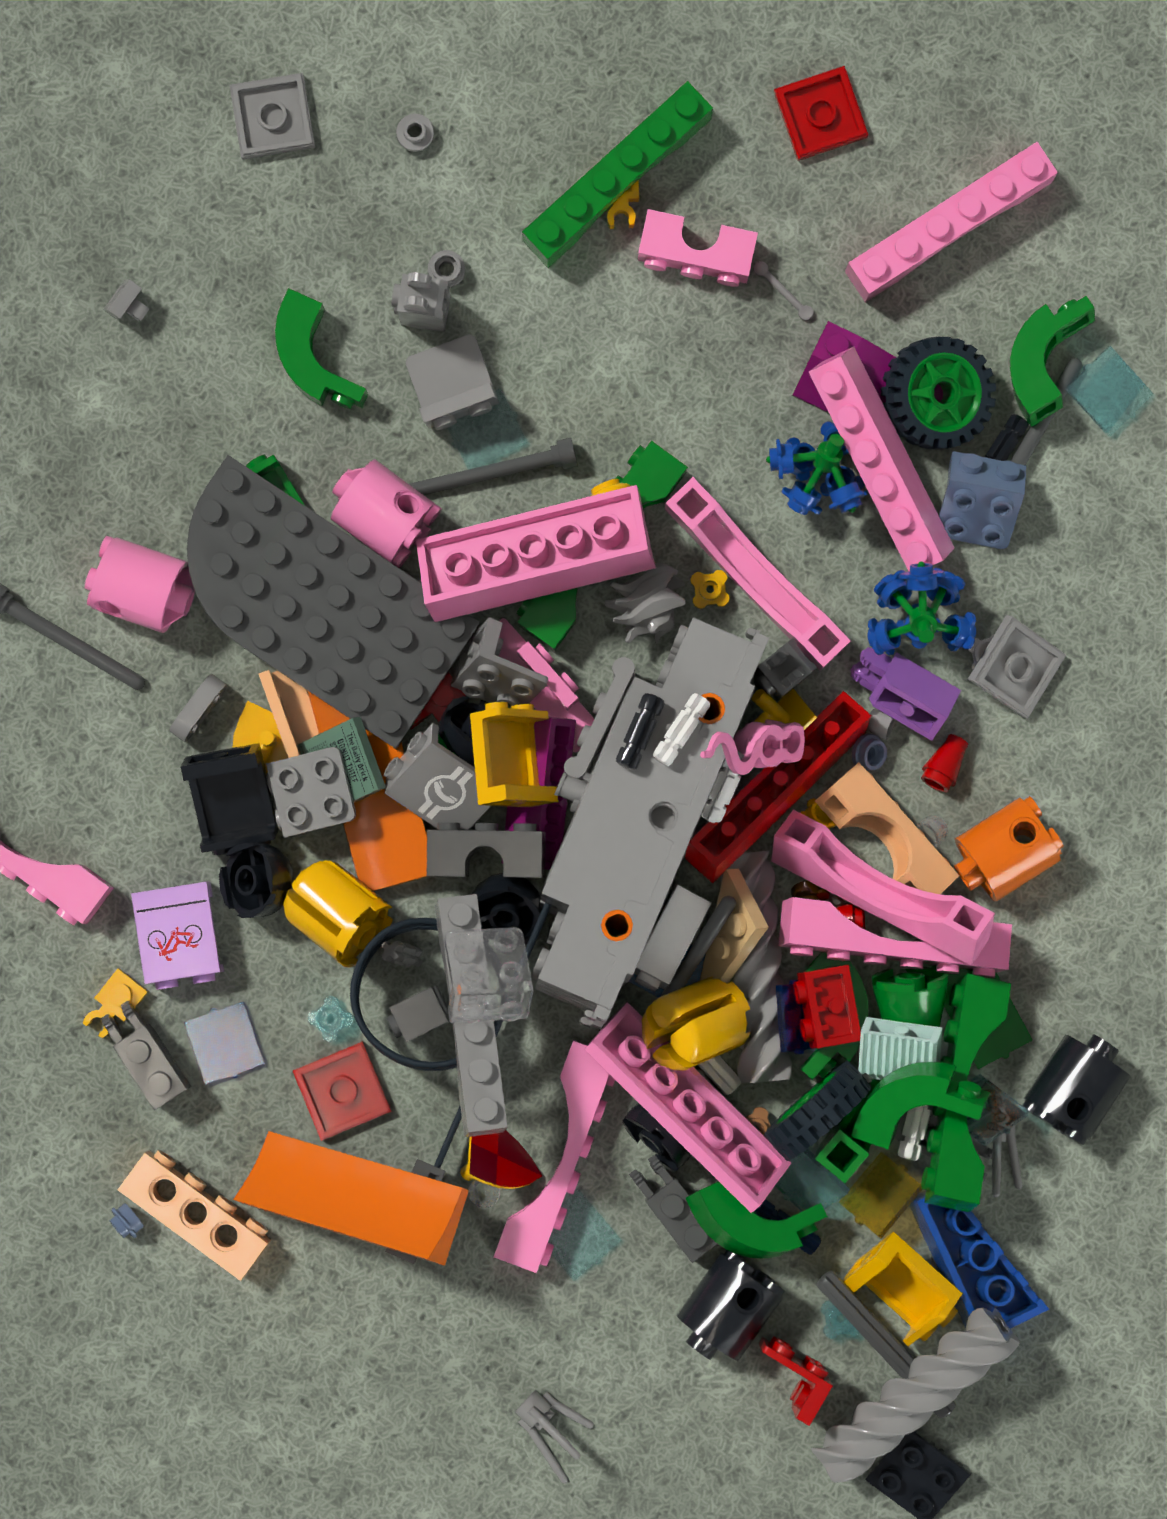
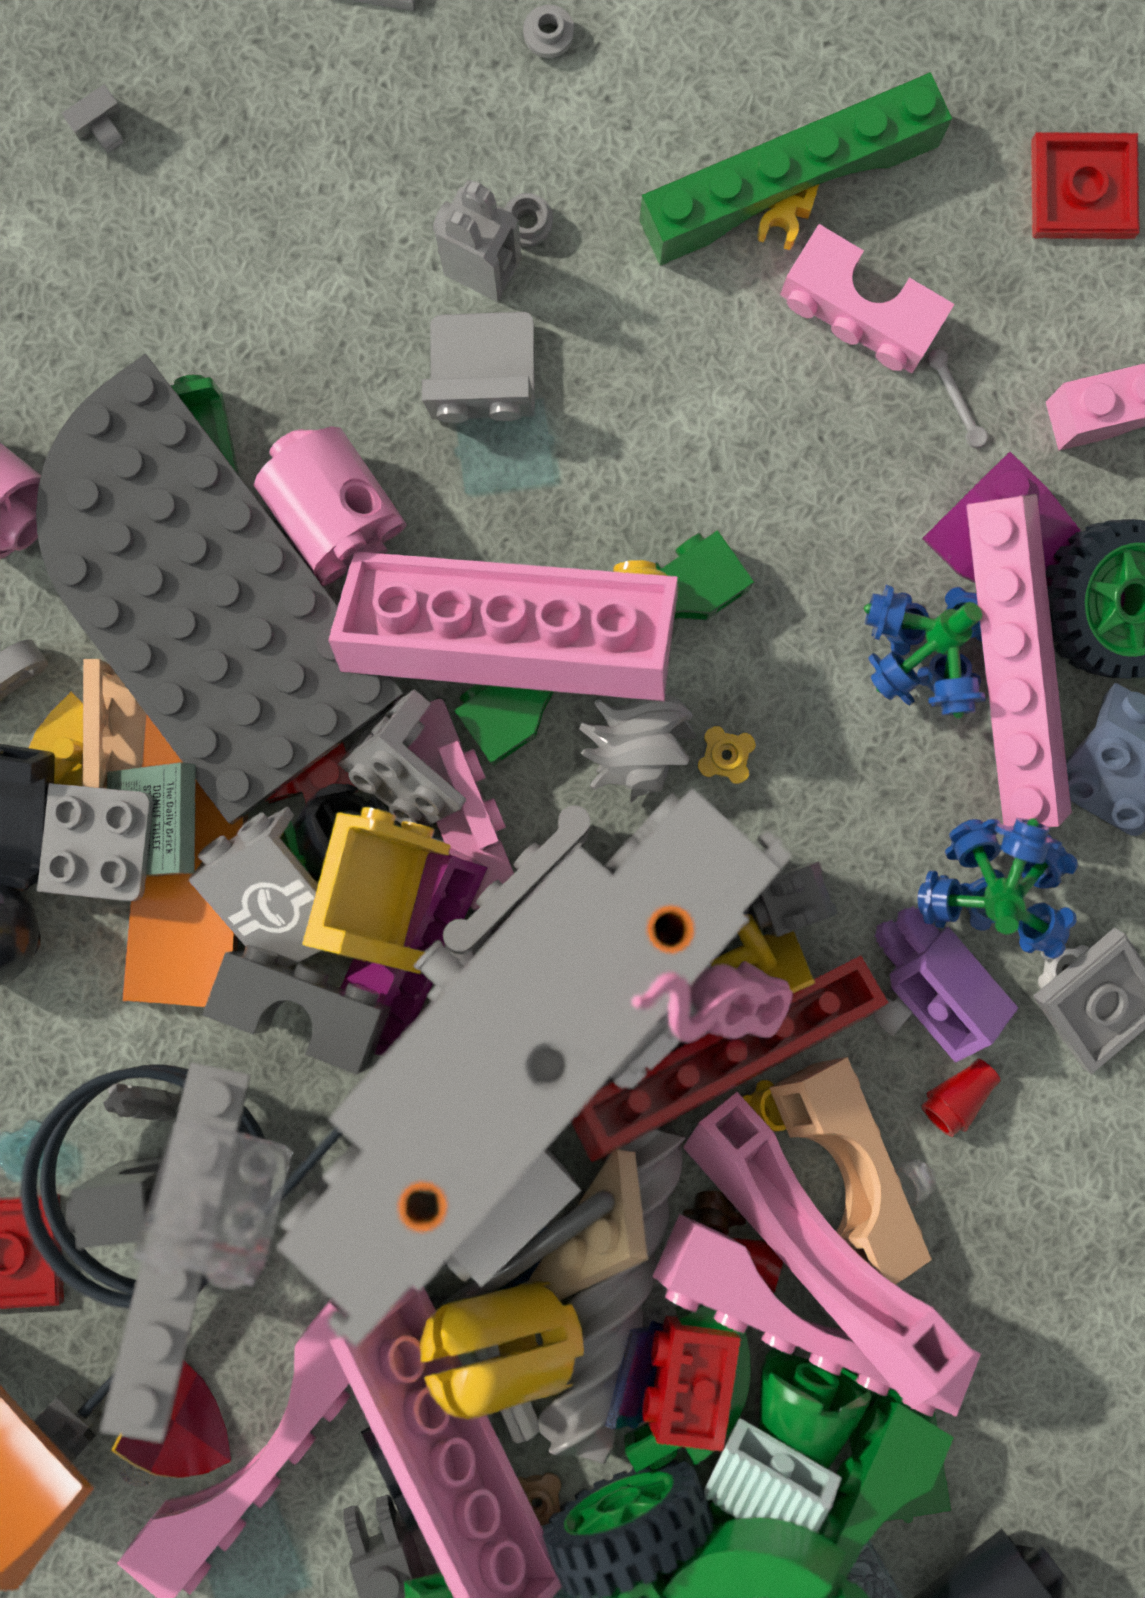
camera: 20 degrees right, 0 degrees up
(294, 338) = (296, 239): green arch -> none
(335, 911) = (71, 1015): yellow cylinder -> none
(508, 904) = (296, 1093): black cylinder -> none
(560, 455) = (590, 510): dark grey piece -> none
(640, 731) = (557, 929): black axle -> none
(681, 729) = (619, 947): white axle -> none
(737, 556) = (808, 789): bright pink arch -> none
(869, 751) = (864, 1046): sand blue plate -> none
(995, 856) = (991, 1253): orange cylinder -> none

